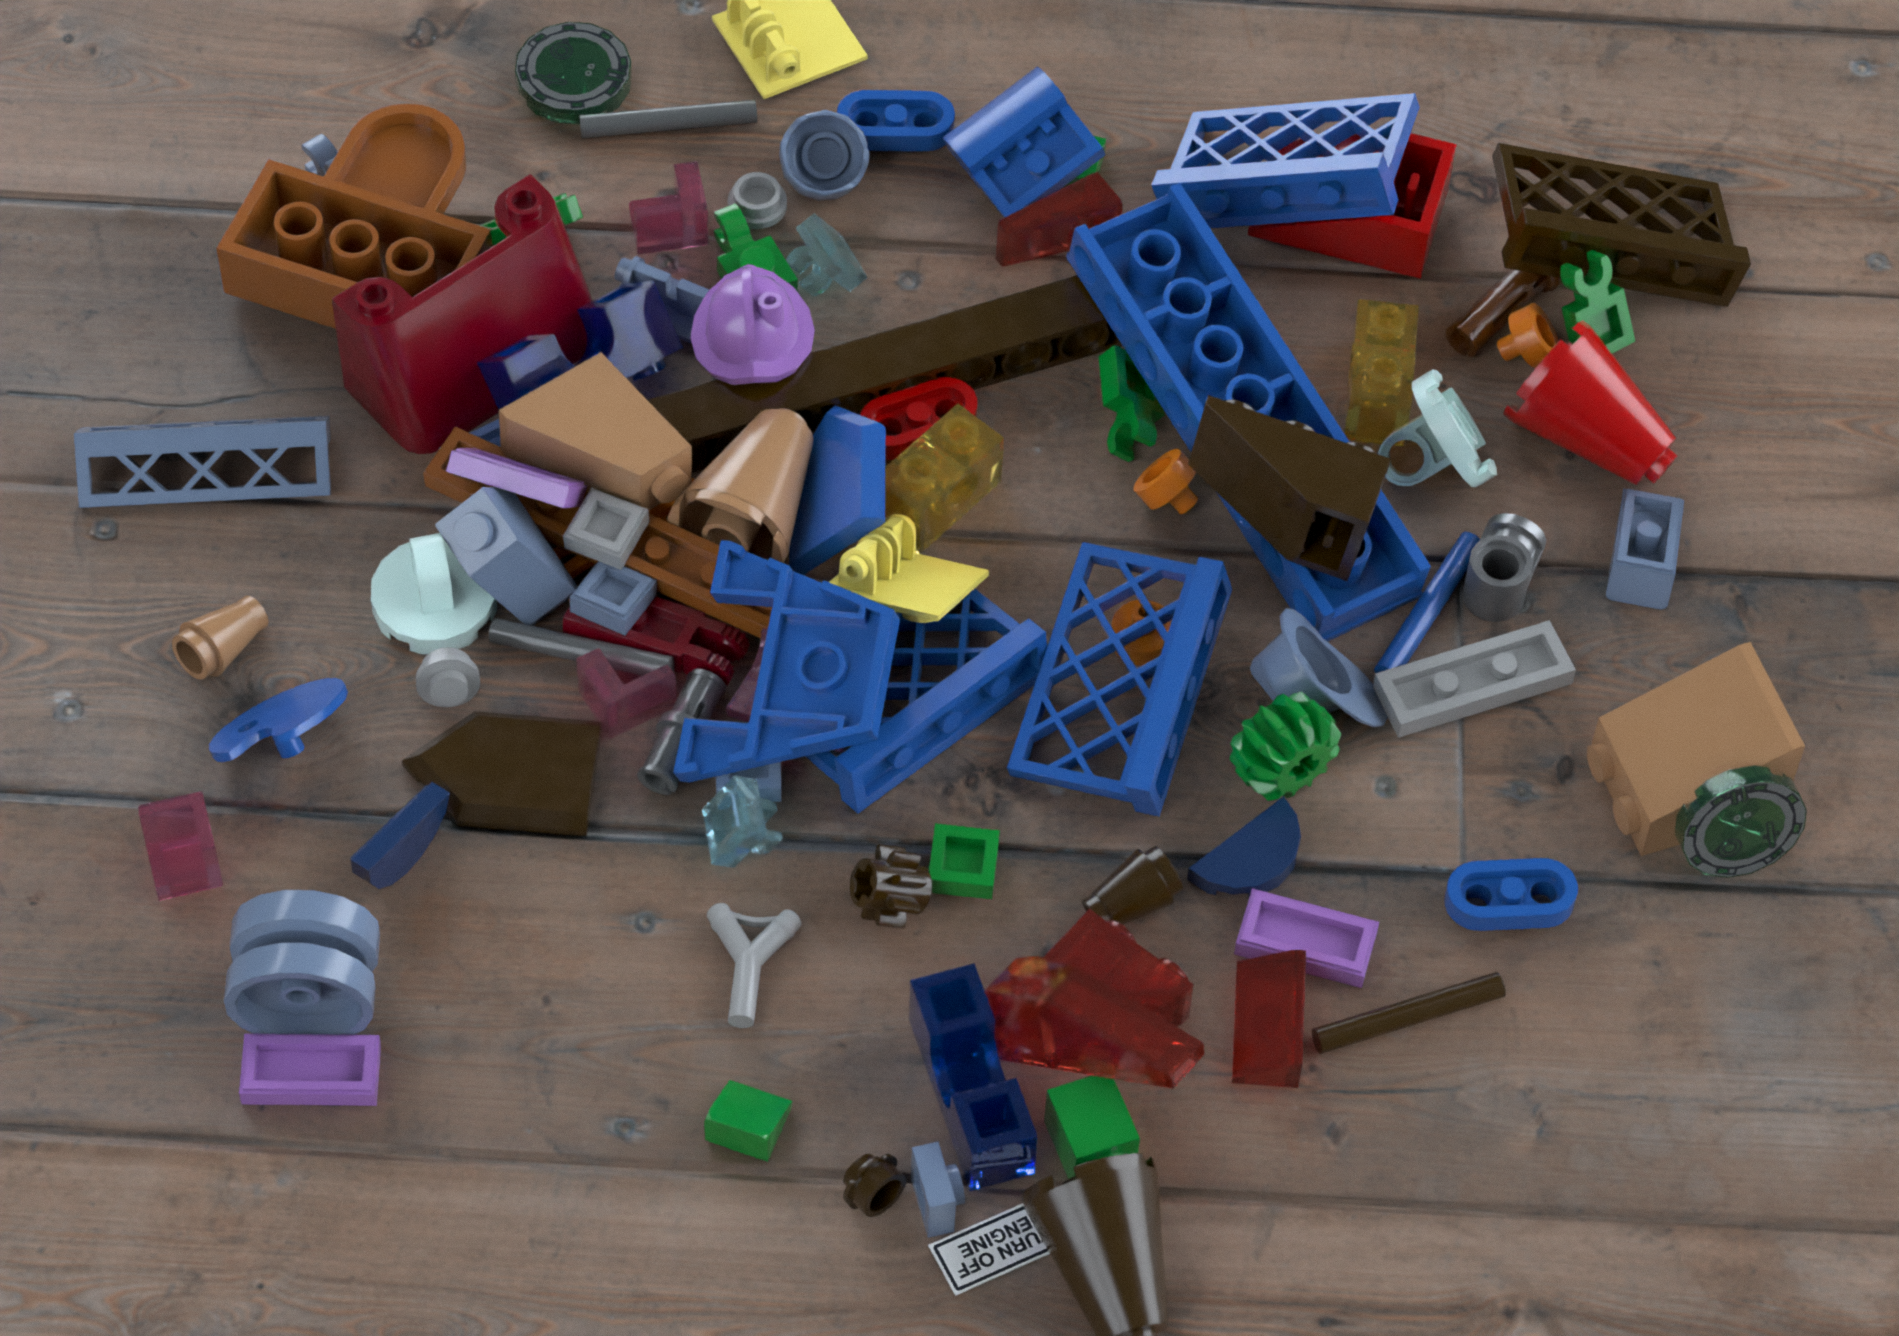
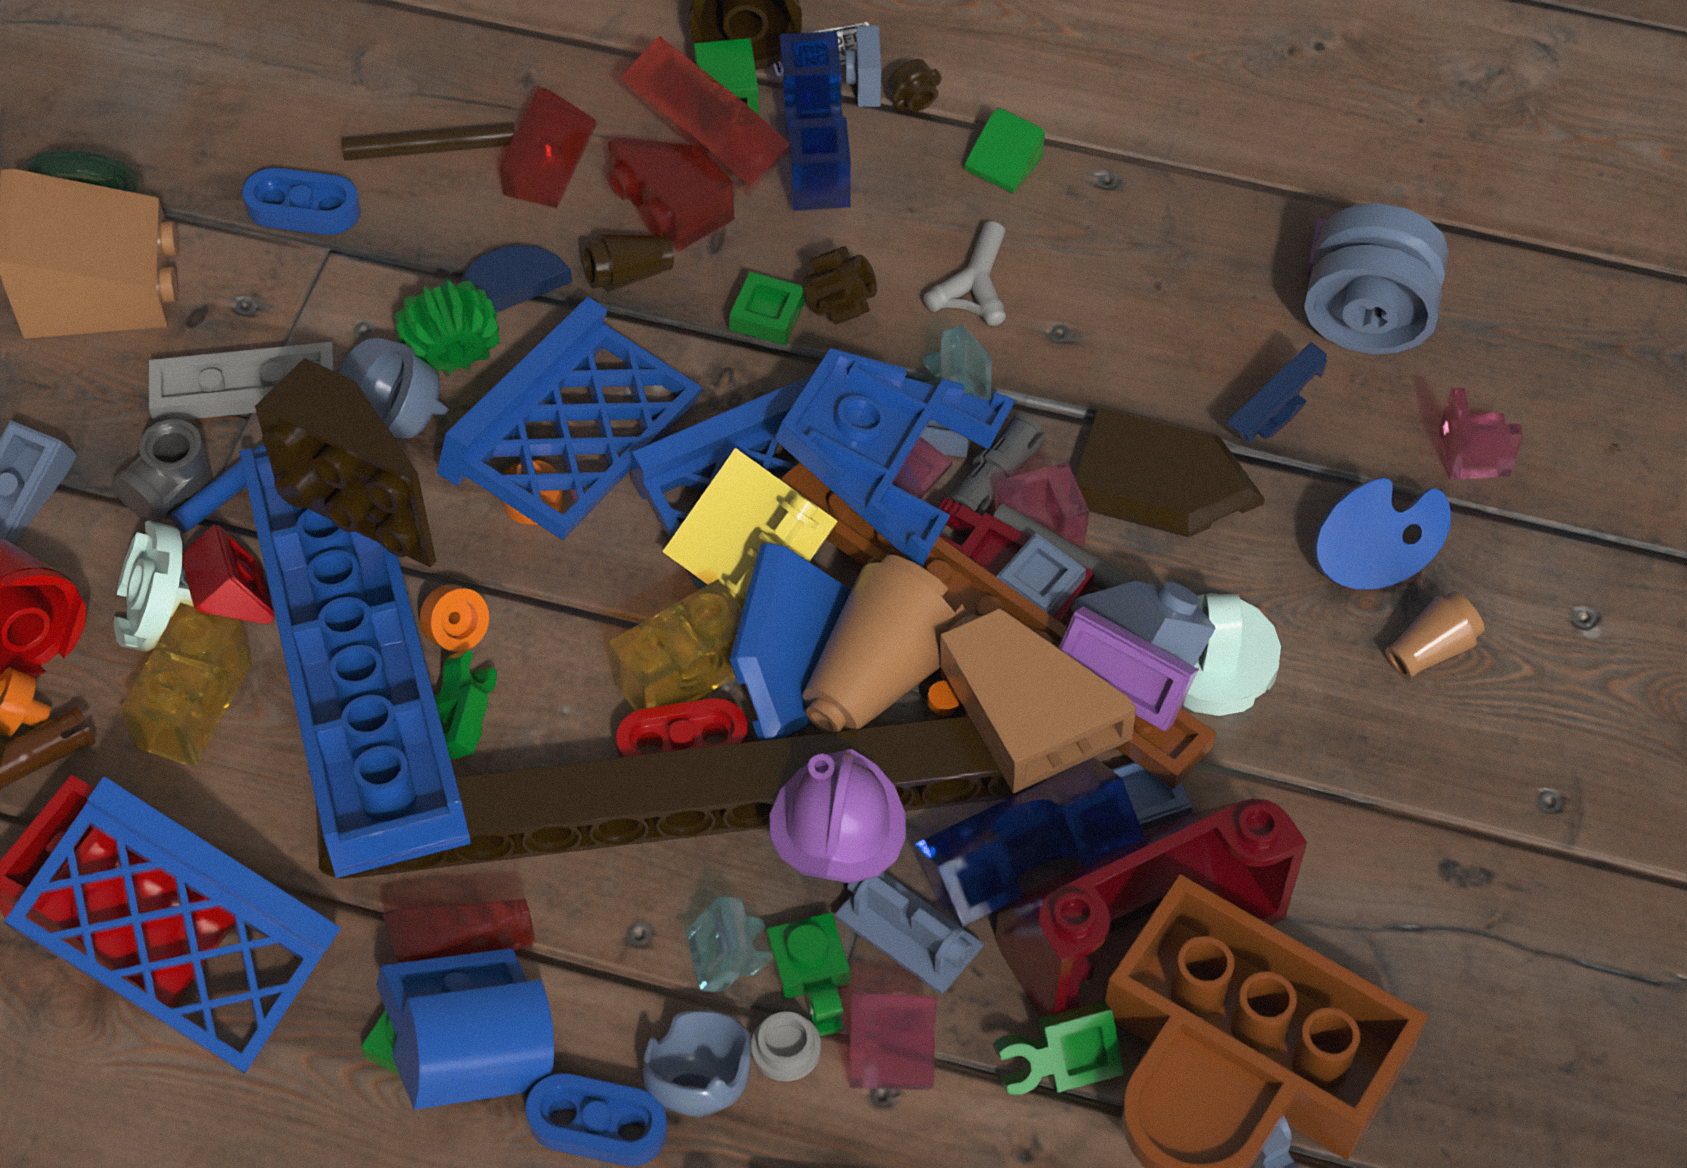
camera: 165 degrees left, 0 degrees up
(202, 437) = (1446, 842): sand blue fence -> none
(447, 678) = (1213, 551): light grey plate -> none
(606, 528) = (1042, 611): light grey tile -> none
(1334, 941) = (488, 210): medium lavender tile -> none
(1385, 426) = (226, 578): none -> red slope

